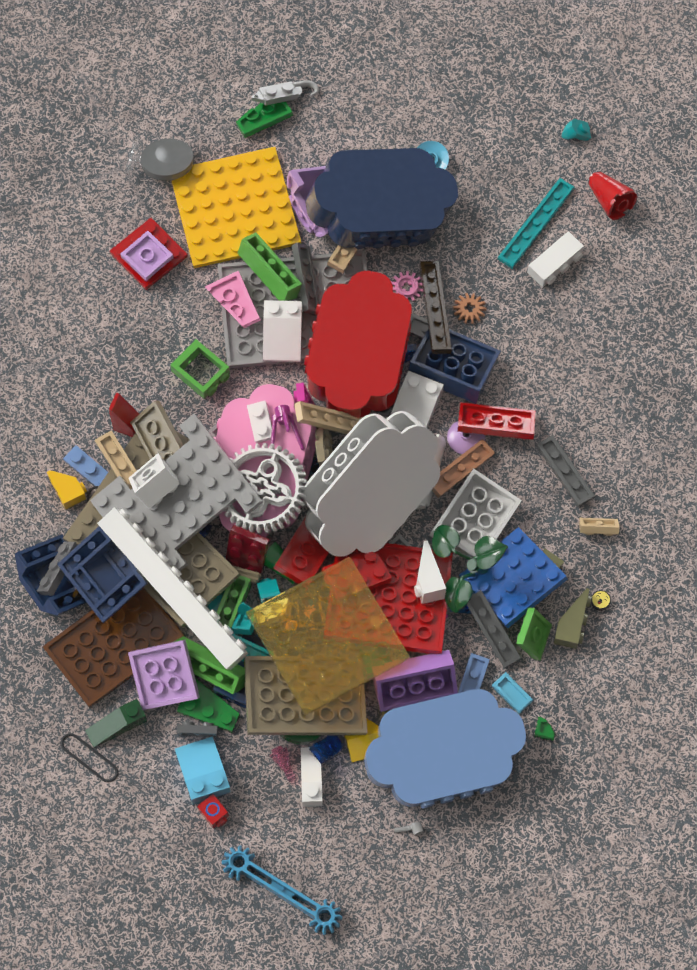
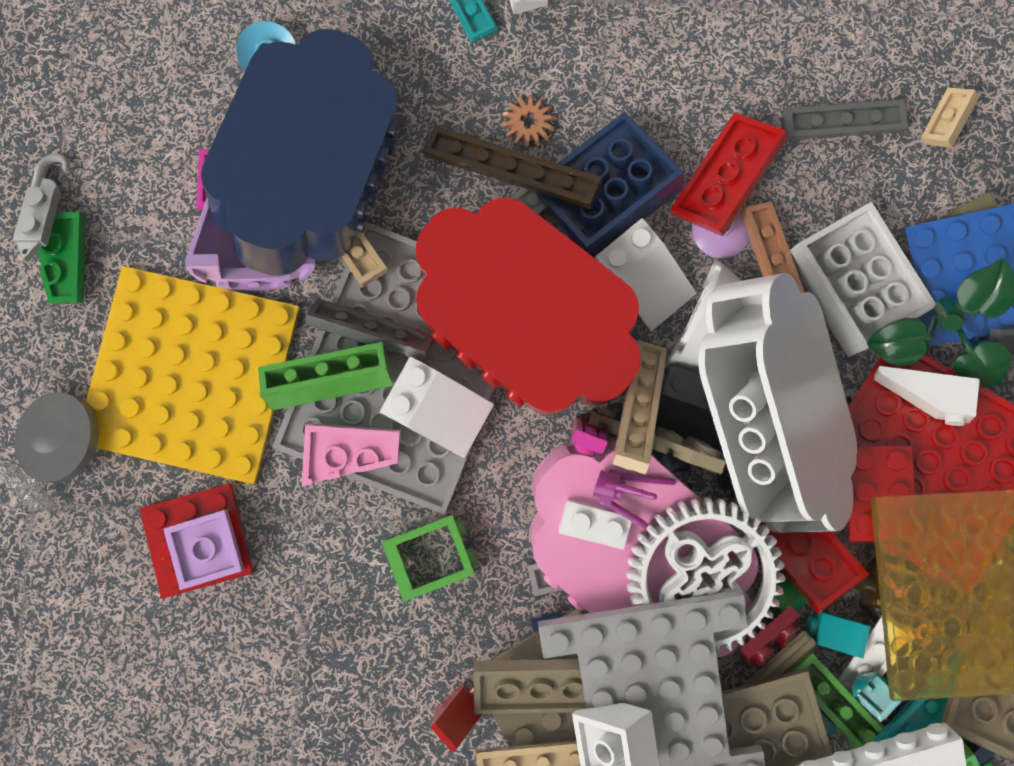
camera: 65 degrees left, 15 degrees up
(411, 281) = (443, 180): bright pink gear -> none

